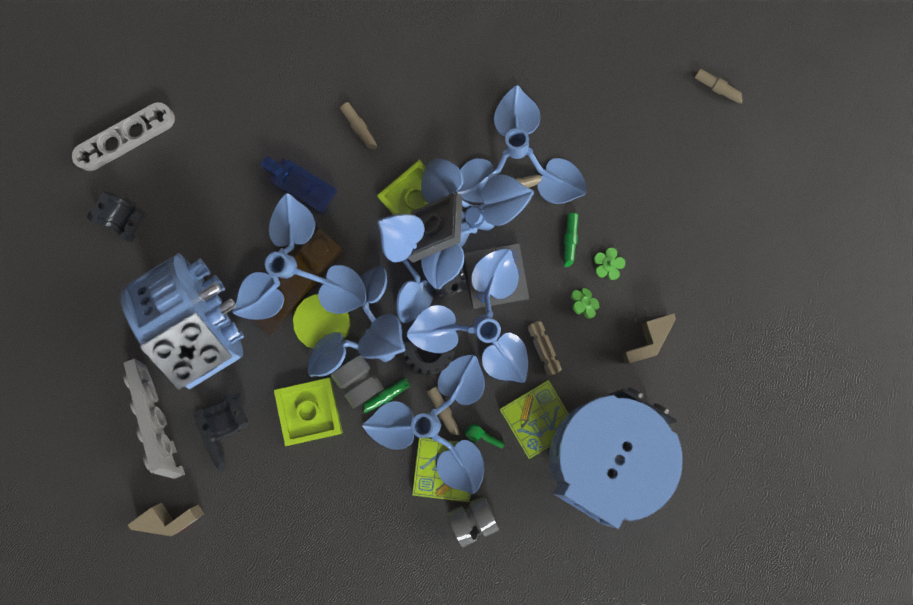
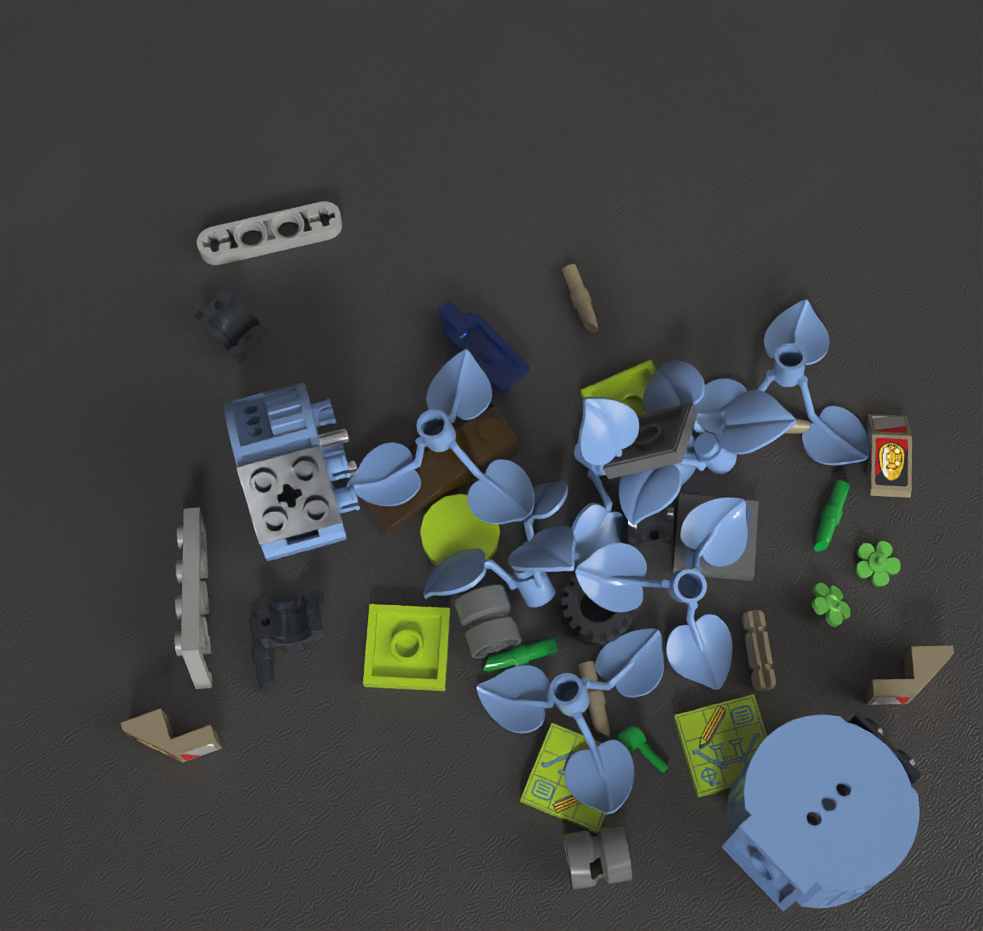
camera: 15 degrees right, 15 degrees down
(601, 186) = (890, 456): none -> slope

